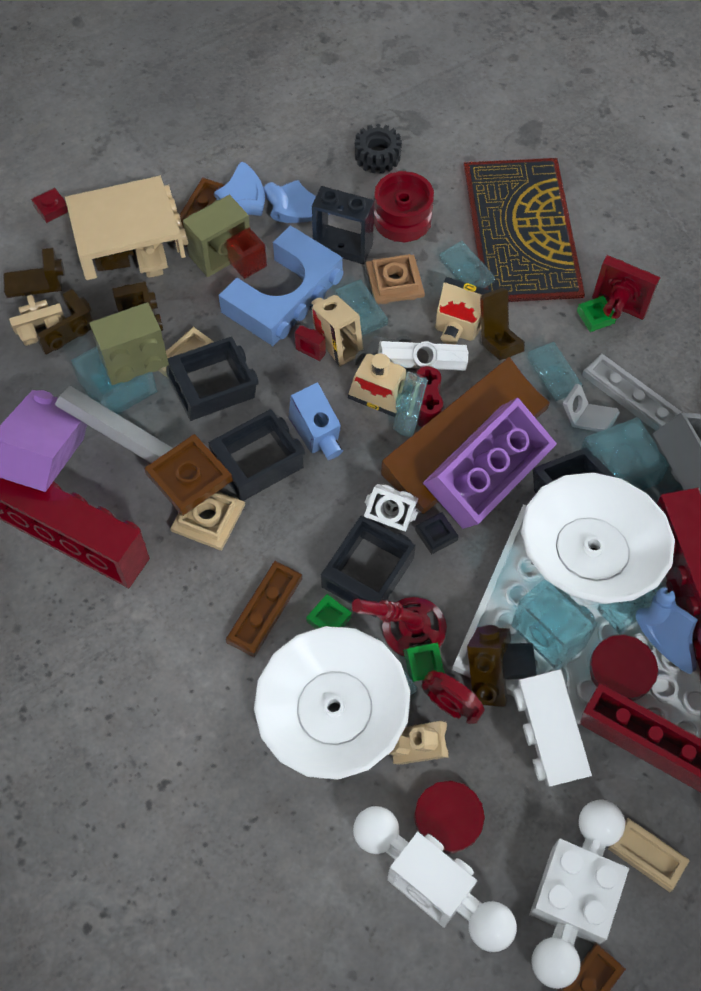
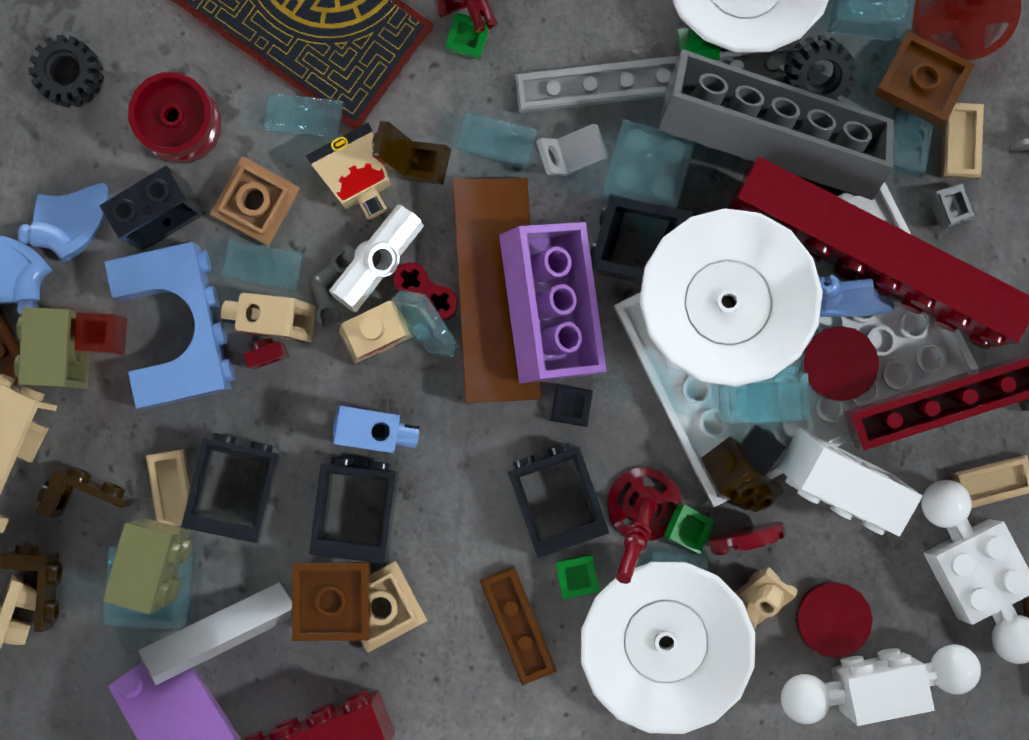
camera: 50 degrees left, 25 degrees up
(379, 511) = (520, 434): white head -> none

